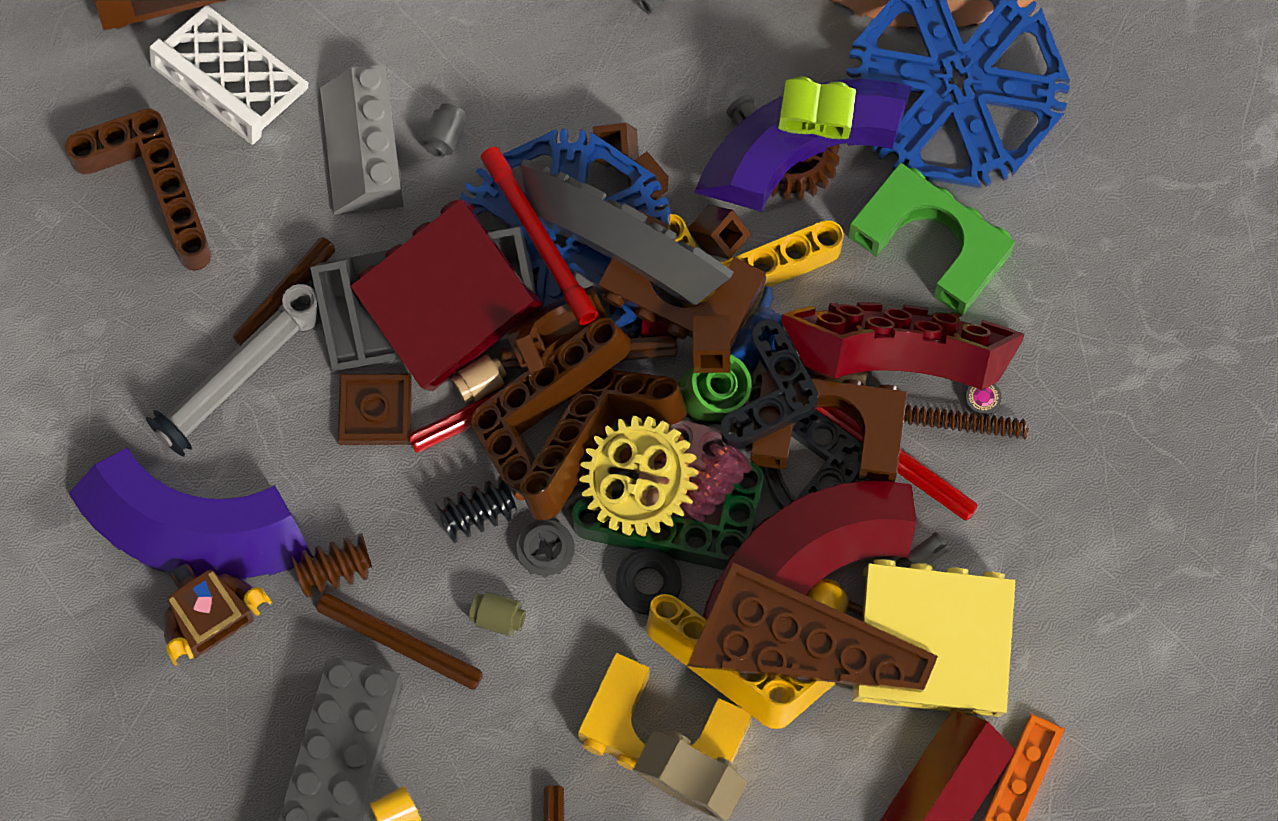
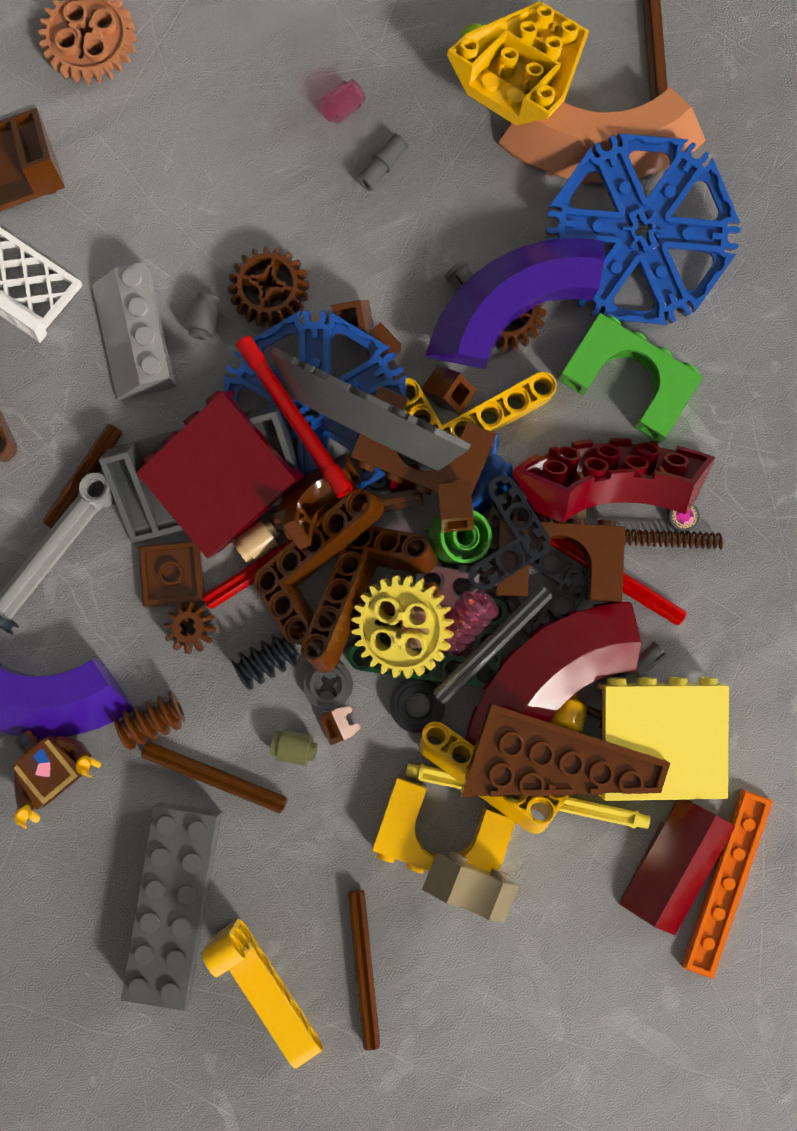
camera: 10 degrees left, 15 degrees up
(390, 454) = (179, 629): none -> reddish brown gear
(499, 94) = (245, 279): none -> reddish brown gear
(551, 594) = (336, 725): none -> tile
(741, 510) = (492, 644): none -> dark grey axle
(817, 108) = (528, 275): lime brick -> none
(818, 711) = (571, 805): none -> light yellow piece

